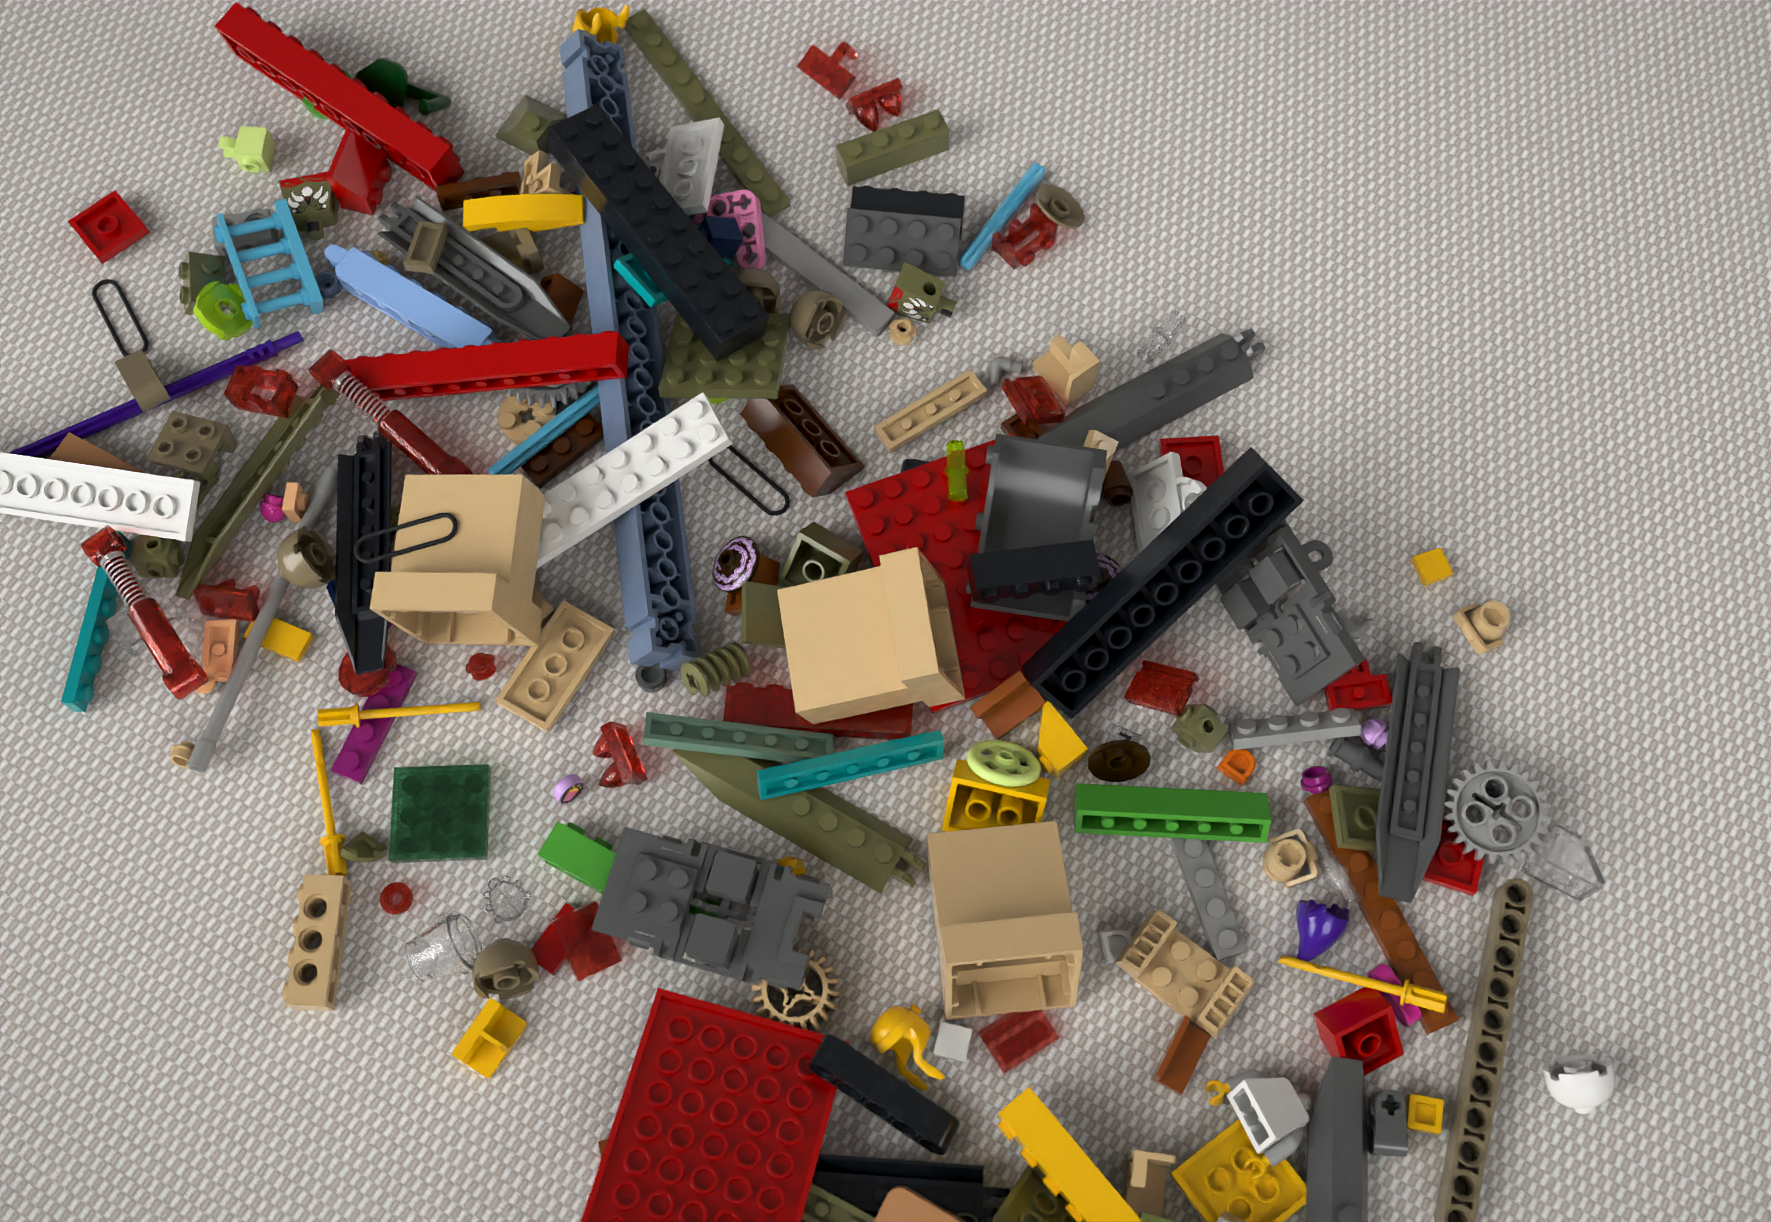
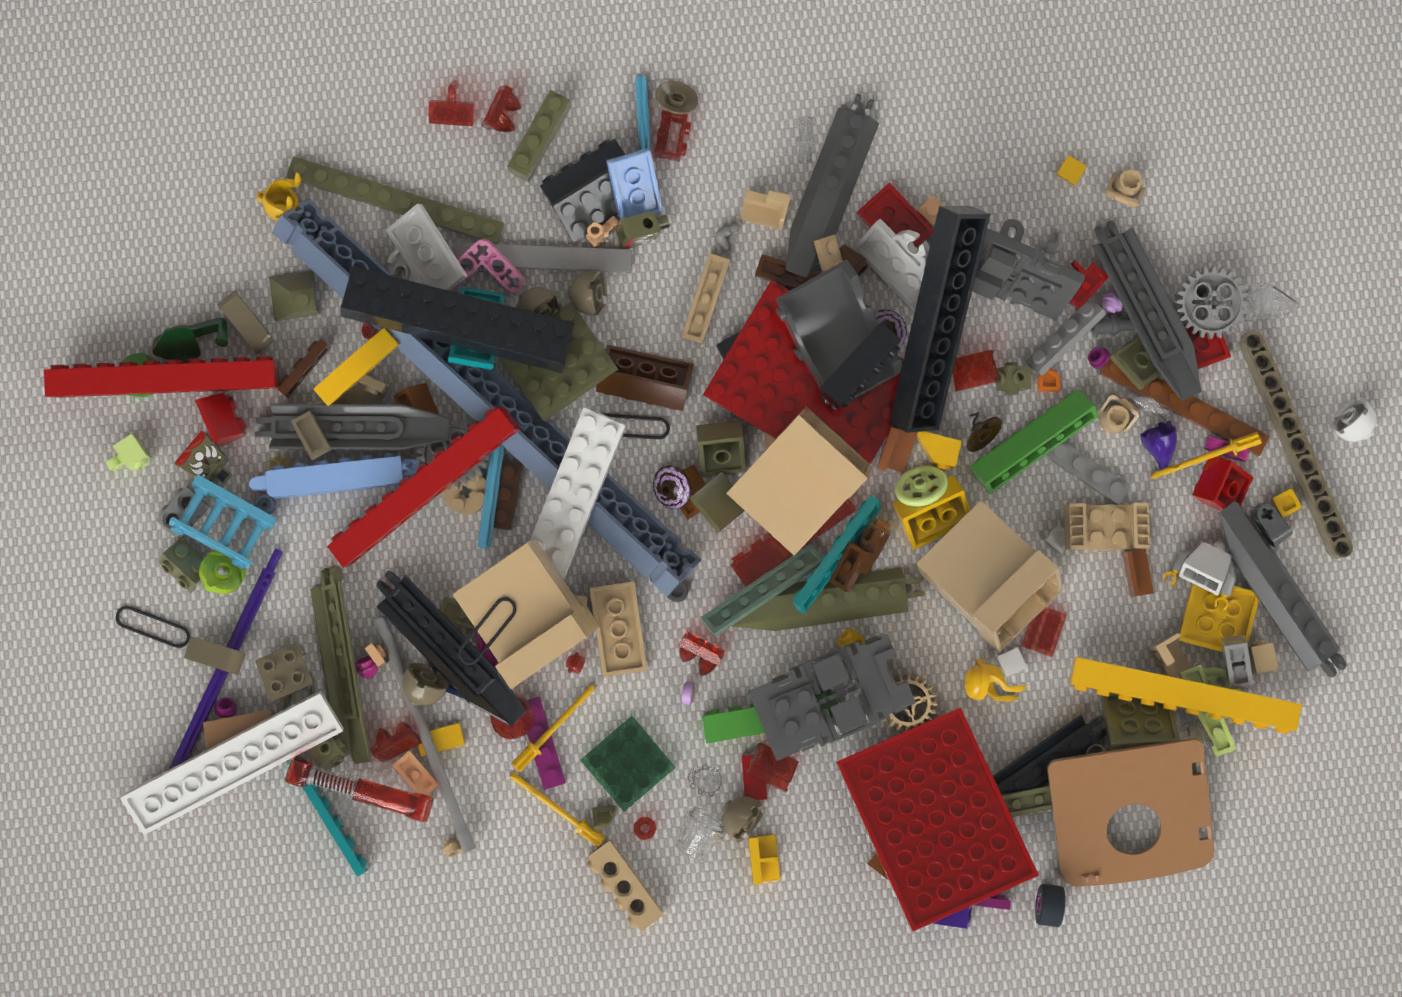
camera: 40 degrees left, 15 degrees up
(107, 440) = (225, 707): none -> magenta plate
(108, 227) = (89, 575): red plate -> none
(246, 378) = (272, 604): clear red window -> none
(334, 373) = (397, 563): clear red piece -> none
(466, 114) = (245, 322): none -> dark tan beam
(540, 177) = (342, 339): tan panel -> none
(715, 668) = (715, 559): olive piece -> none
(722, 234) = (486, 284): dark blue brick -> none
(871, 274) = (599, 233): none -> light nougat bar
(877, 788) = (862, 555): none -> reddish brown plate
(884, 1094) = (1001, 720): black beam -> none
(902, 338) = (650, 262): tan plate -> none
(949, 246) = (634, 184): none -> light blue tile
(956, 470) = (759, 331): clear neon green axle -> none
(1033, 400) = (763, 245): clear red plate -> none

